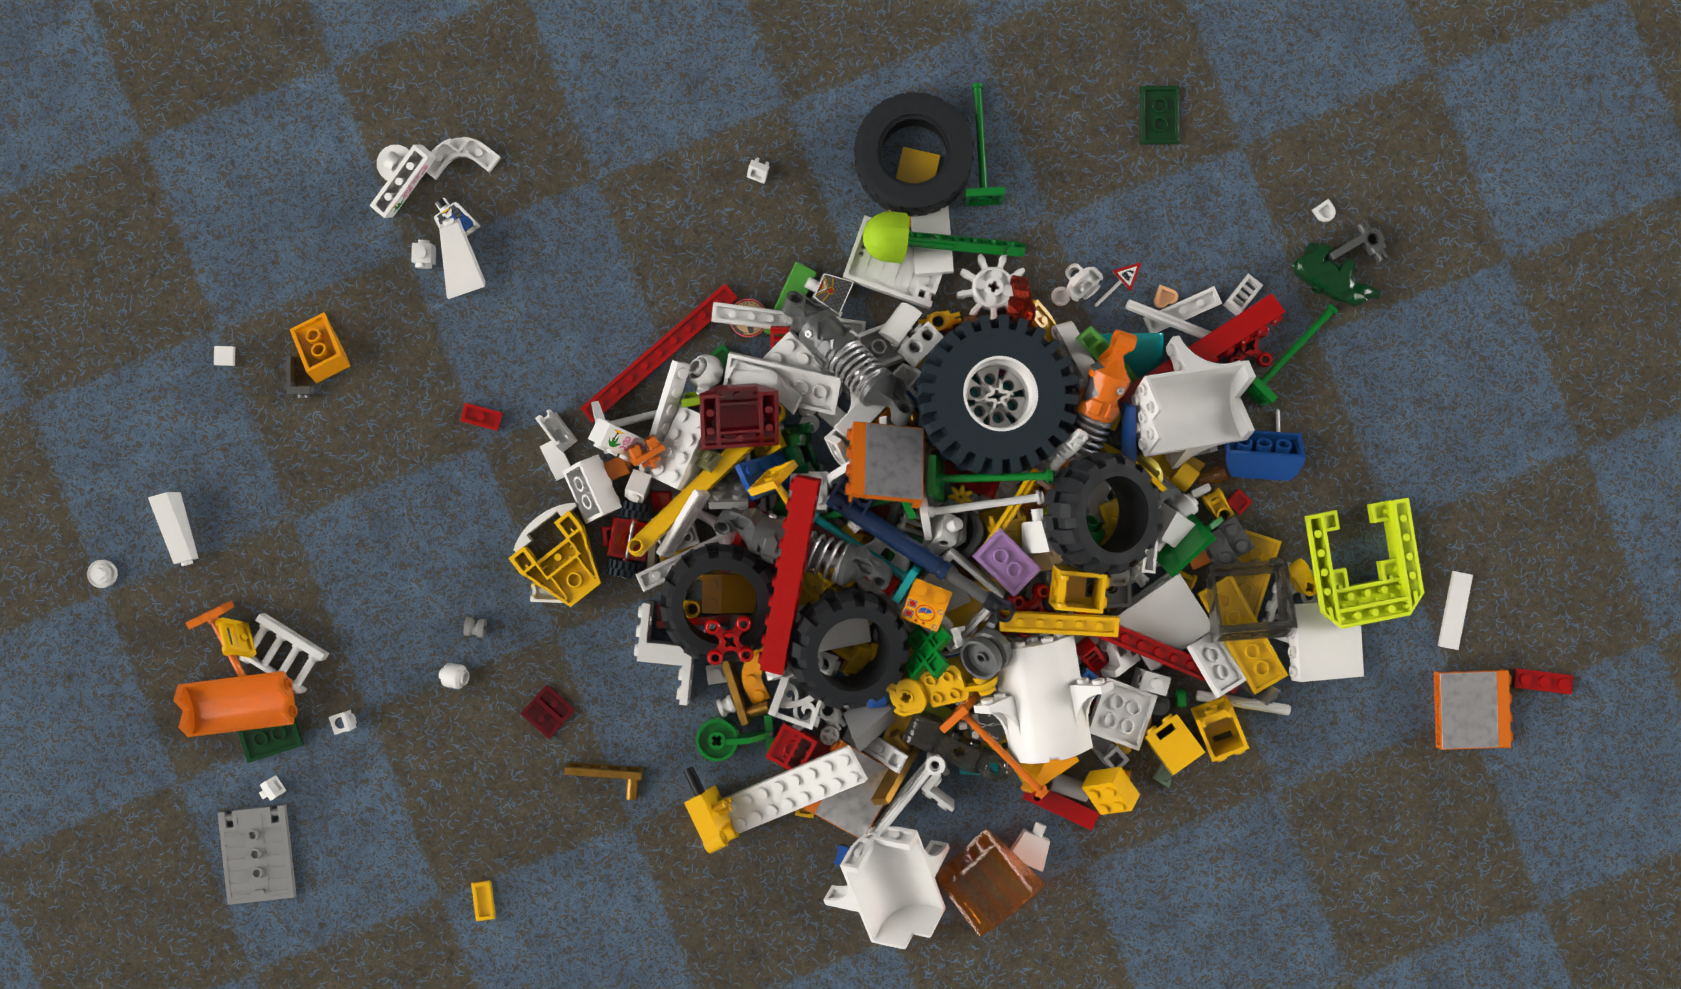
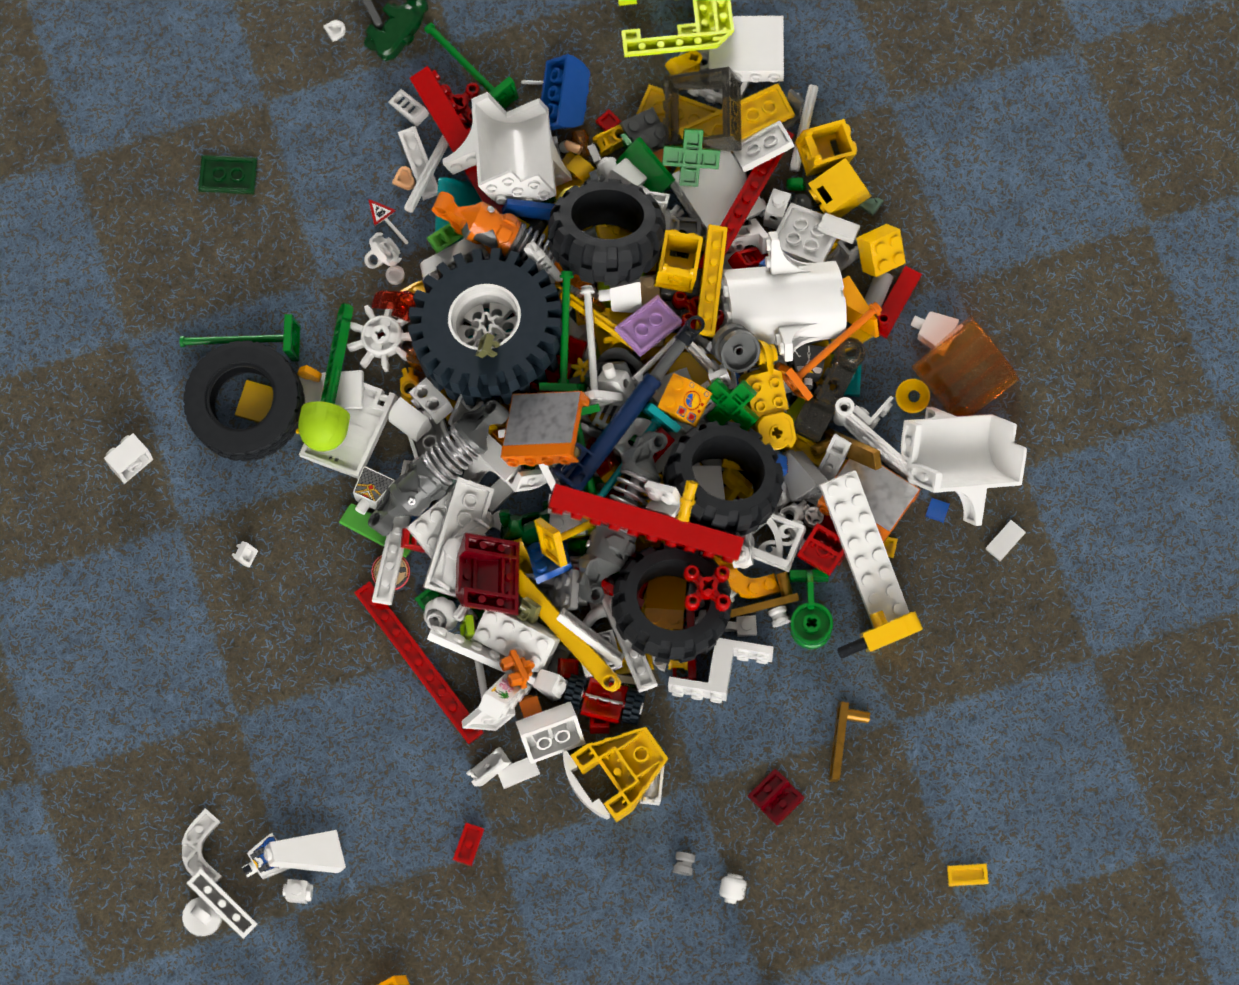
camera: 80 degrees left, 15 degrees down
(811, 617) = (687, 501): none -> yellow pin
(815, 591) = (663, 498): none -> white bracket
(818, 924) = (1005, 540): none -> white tile
(847, 42) = (128, 458): none -> white brick
(947, 217) = (309, 373): none -> light orange tile
(951, 832) = (903, 391): none -> yellow piece
(965, 397) = (485, 344): none -> olive tile
(1130, 747) = (838, 228): none -> white tile
(1196, 593) = (691, 157): none -> green plate
(1208, 461) = (568, 146): none -> light nougat arm

